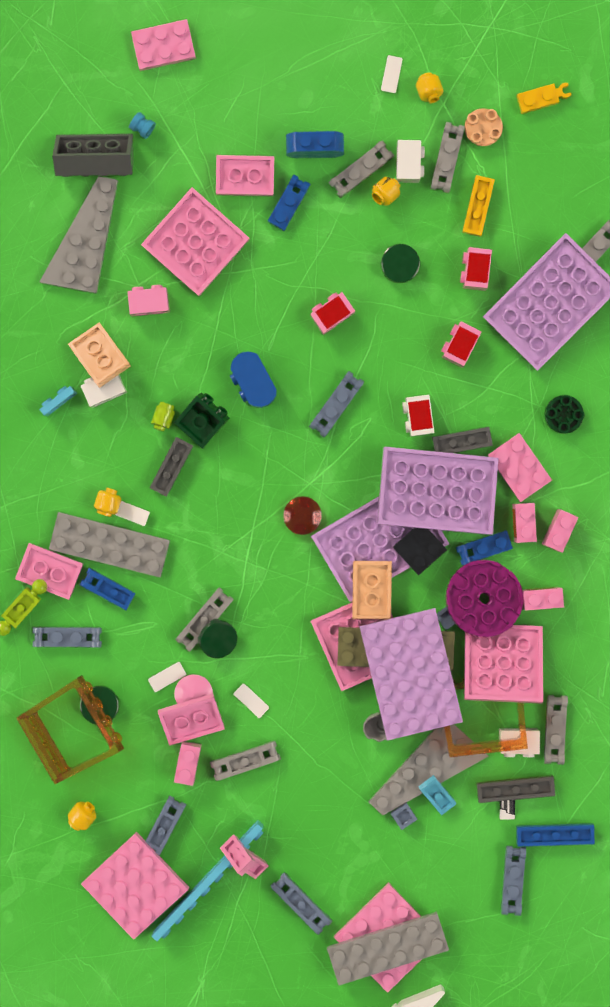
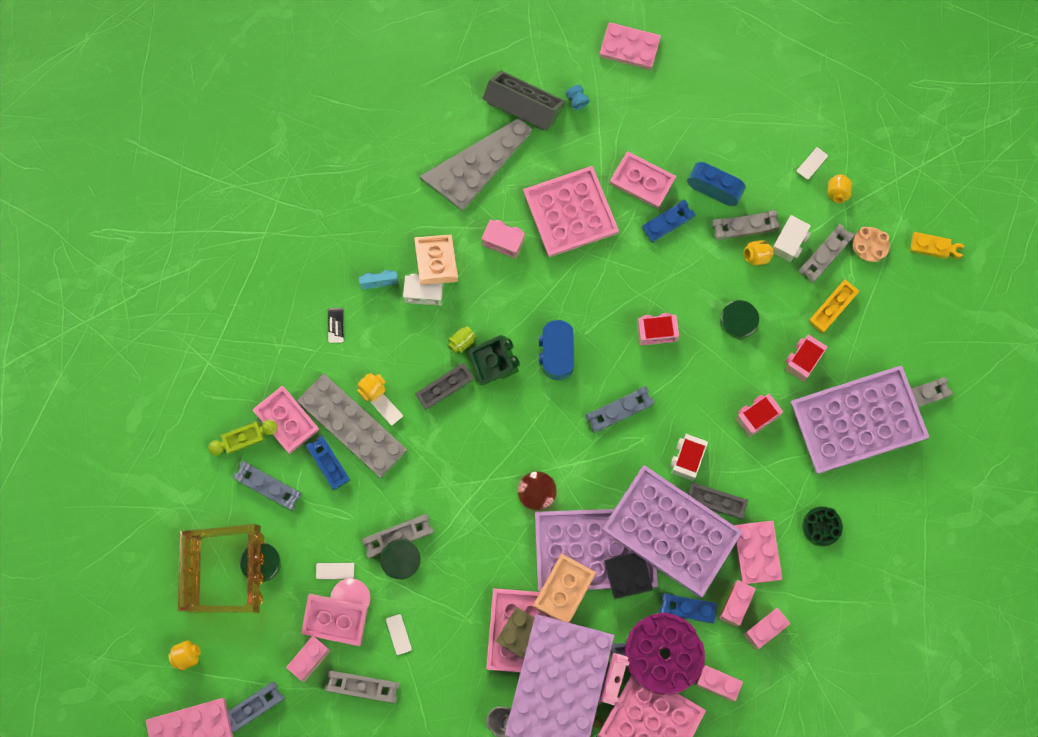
camera: 30 degrees right, 15 degrees down
(43, 461) = (335, 325): none -> sticker
(451, 635) = (616, 669): none -> bright pink piece

